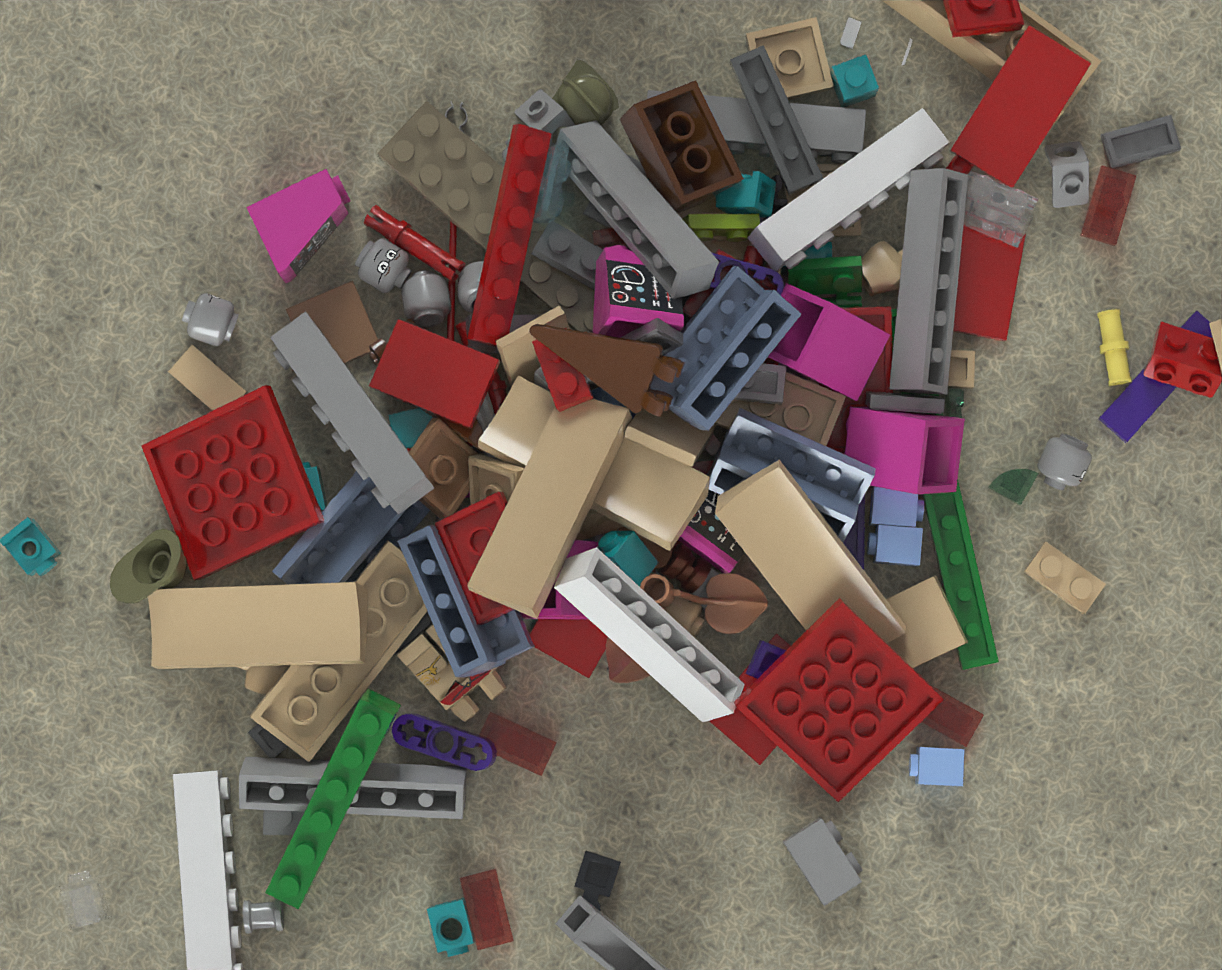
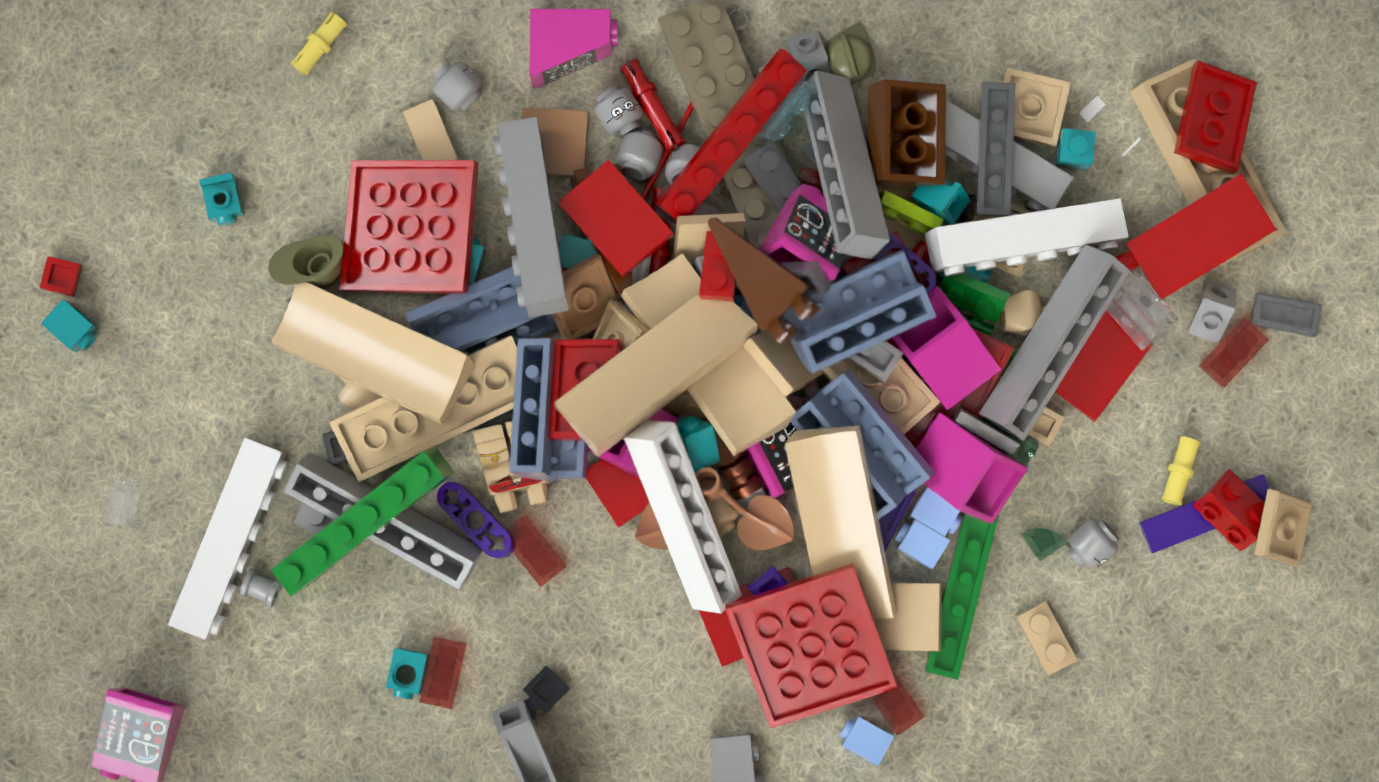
camera: 25 degrees right, 0 degrees up
(50, 345) = (318, 43): none -> light yellow pin

